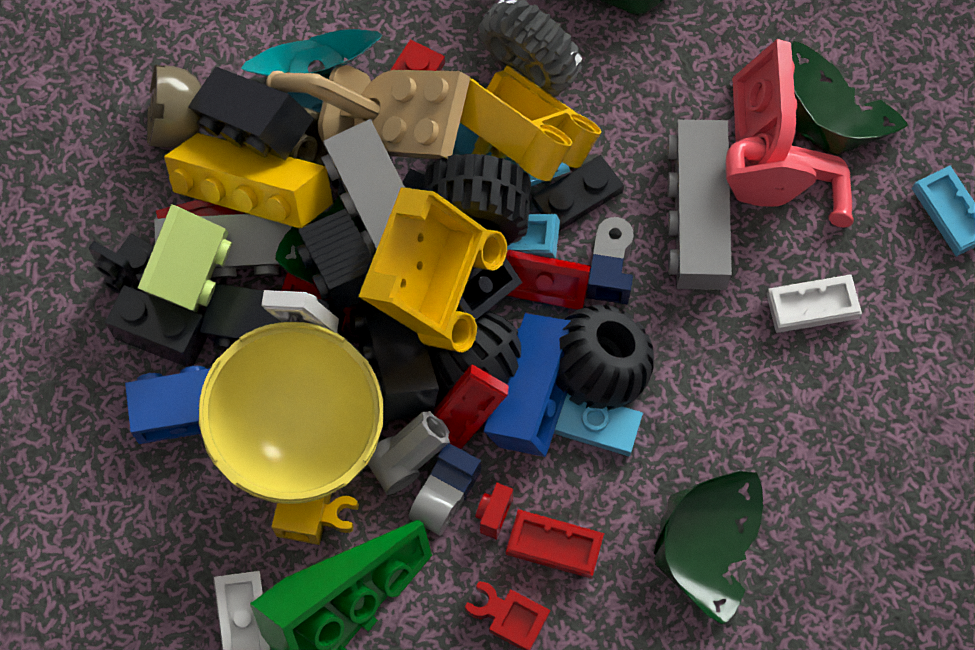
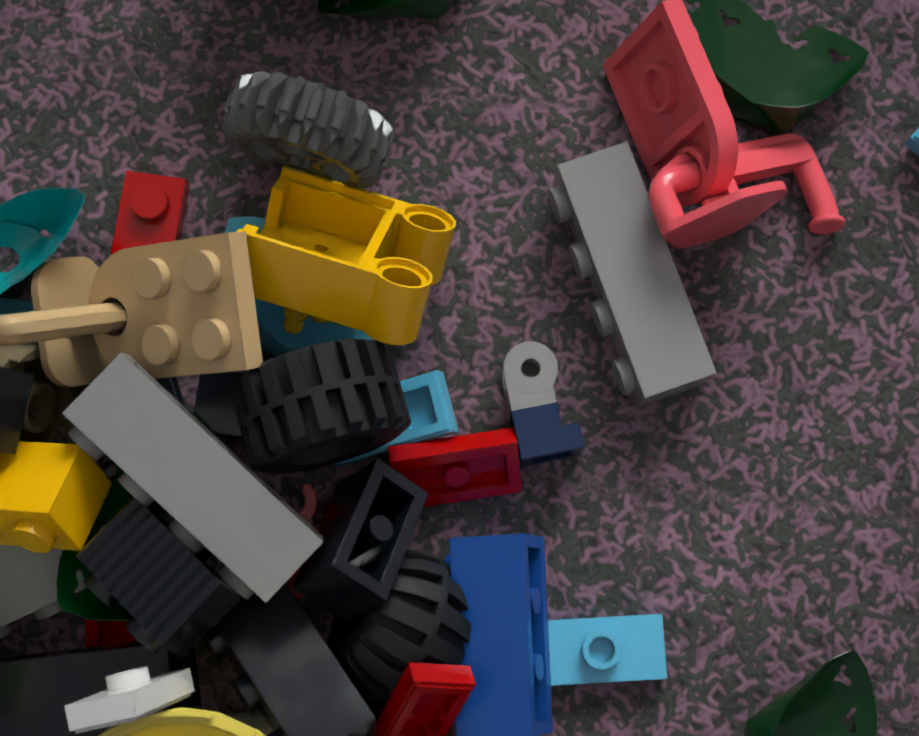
camera: 25 degrees left, 10 degrees up
(426, 265) = (294, 564): yellow piece -> none
(579, 192) = (455, 315): black plate -> none
(604, 357) = (584, 557): black wheel -> none
(813, 303) = (835, 364): white plate -> none

